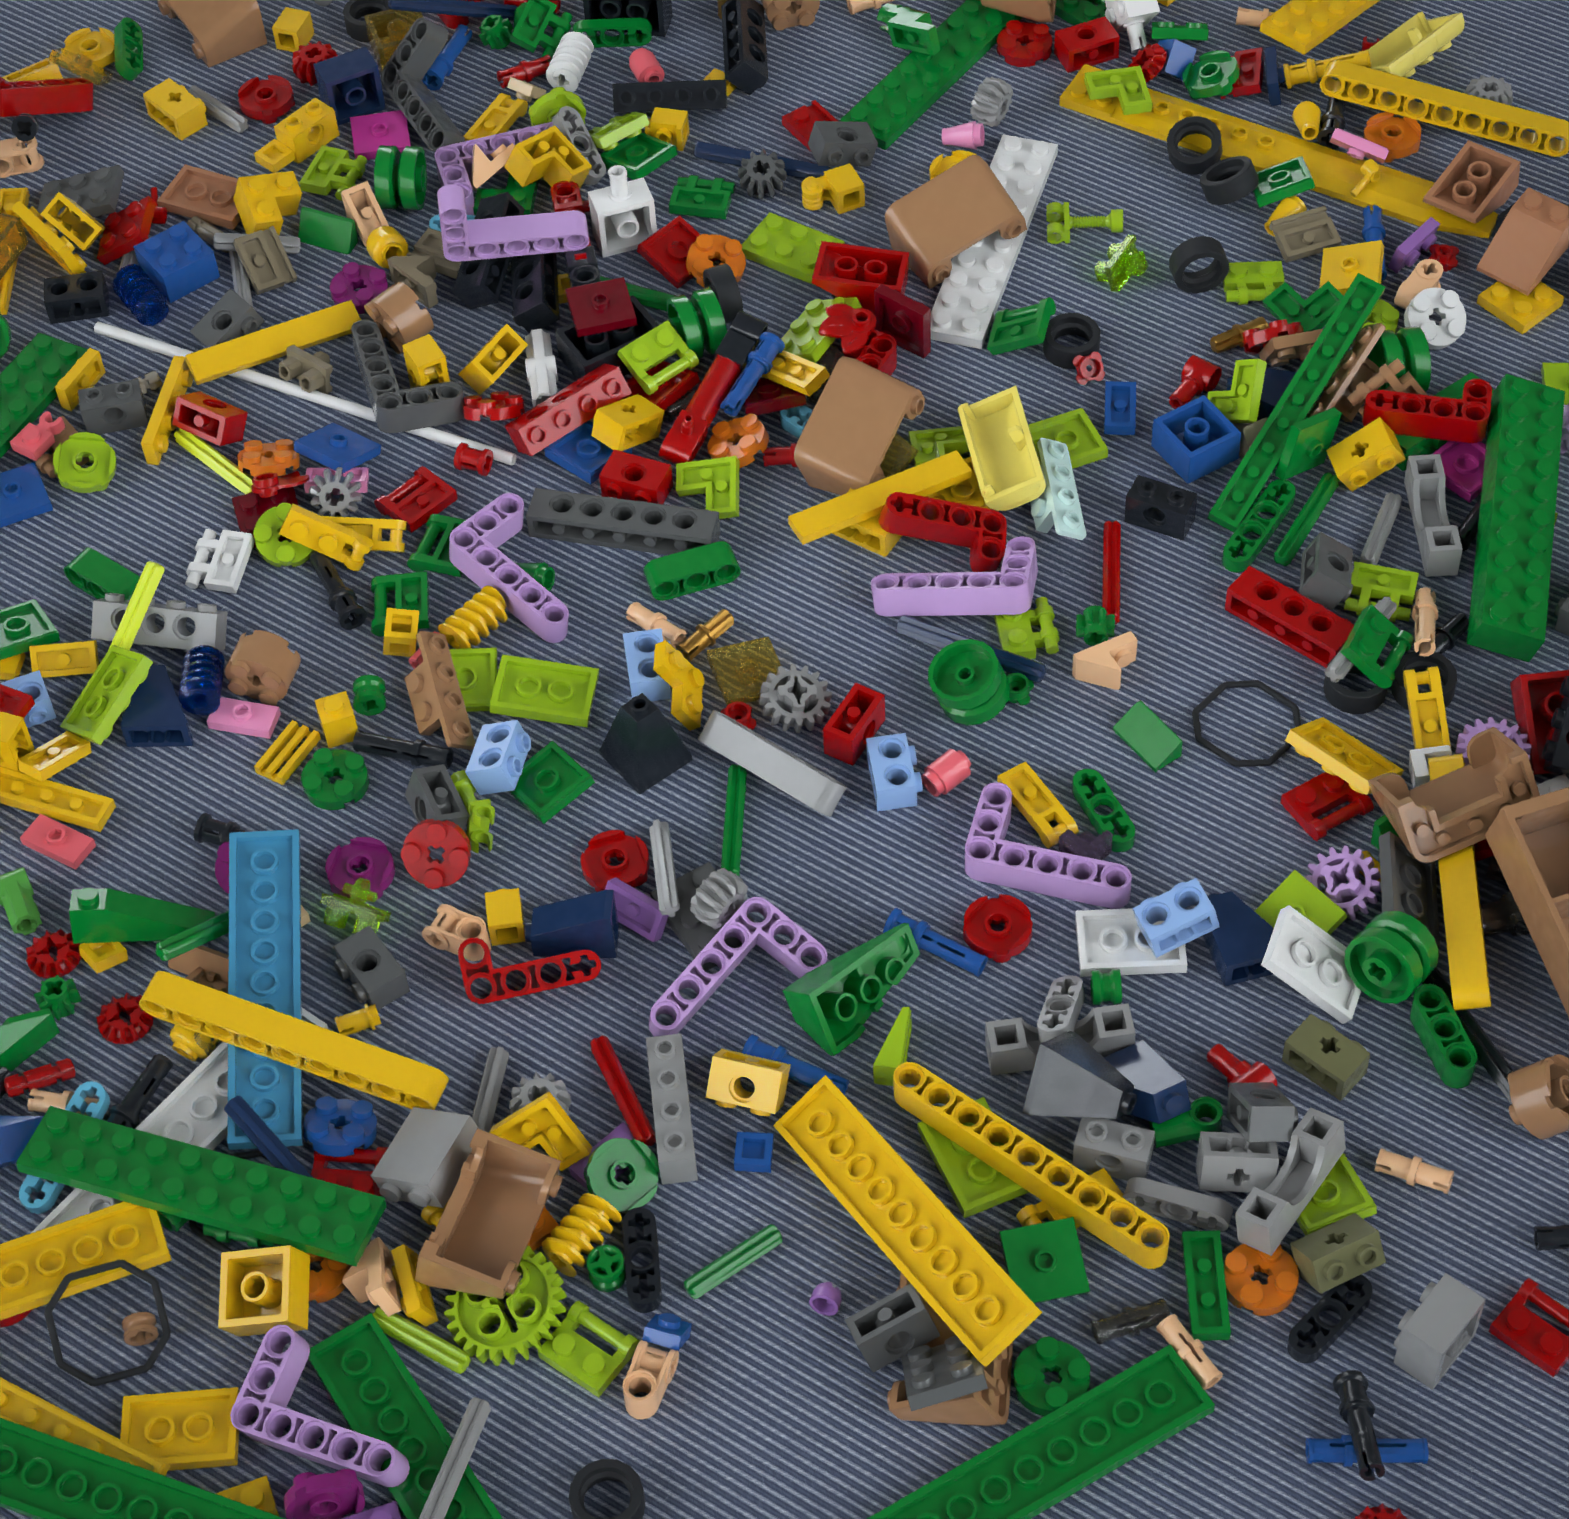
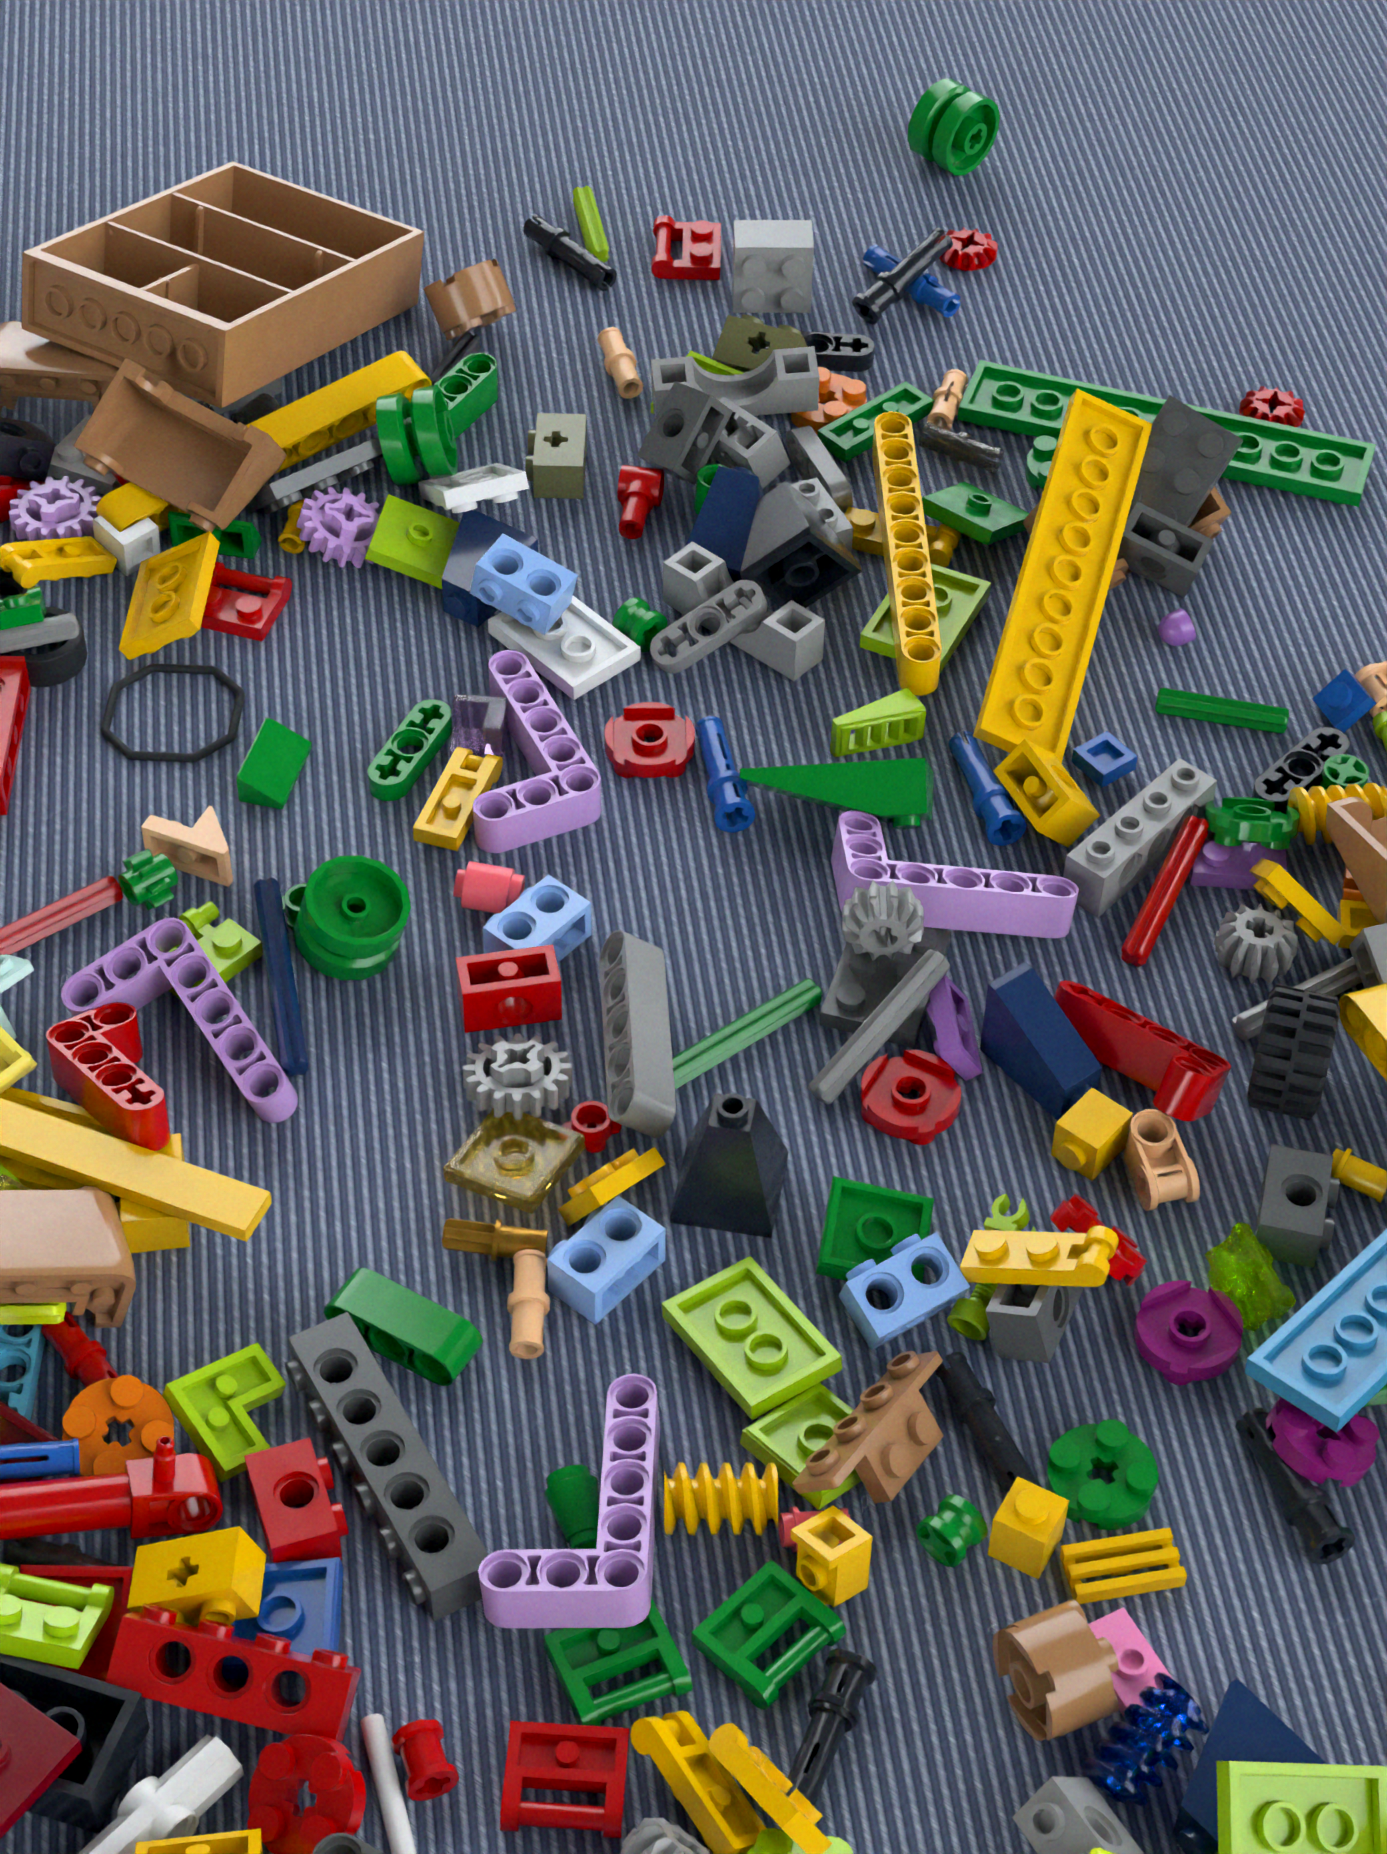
camera: 135 degrees left, 5 degrees down
(440, 795) = (1040, 1257): none -> yellow plate
(441, 1023) = (1293, 1052): none -> black tyre

